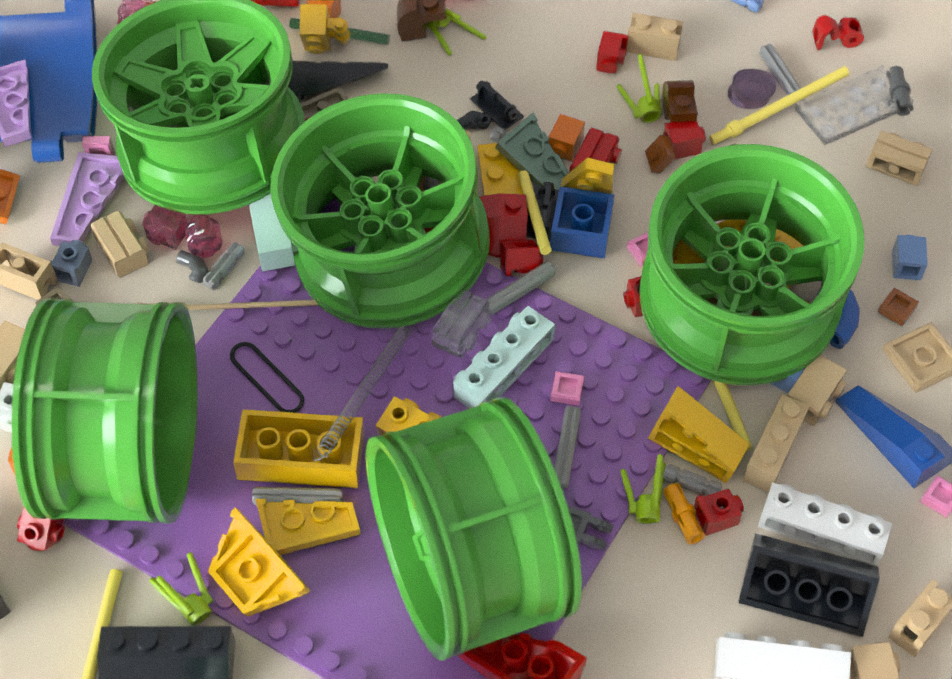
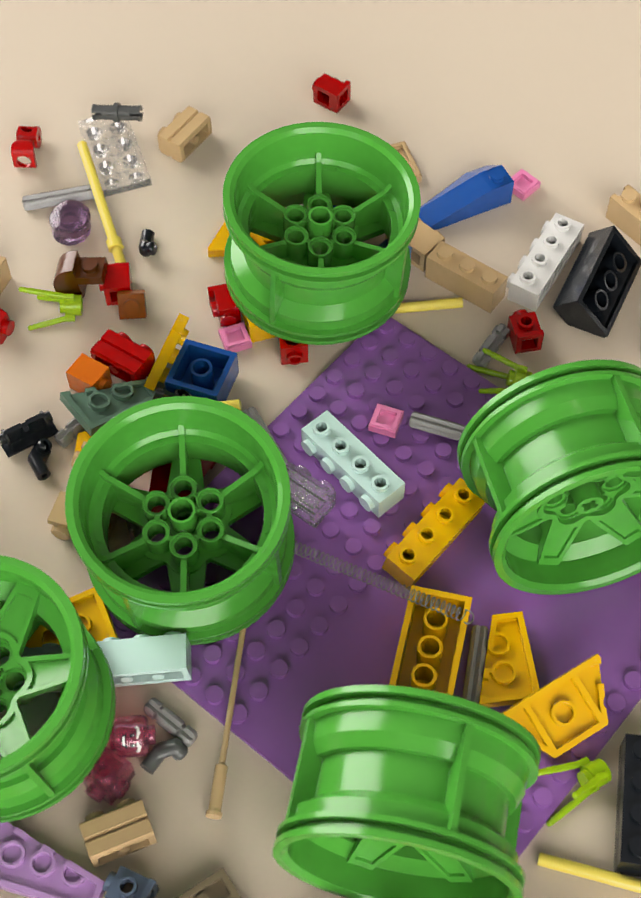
camera: 80 degrees left, 0 degrees up
(260, 388) = (319, 677): black piece -> none
(683, 513) = (526, 356): light orange pin -> none
(698, 436) = (455, 328): yellow wedge -> none

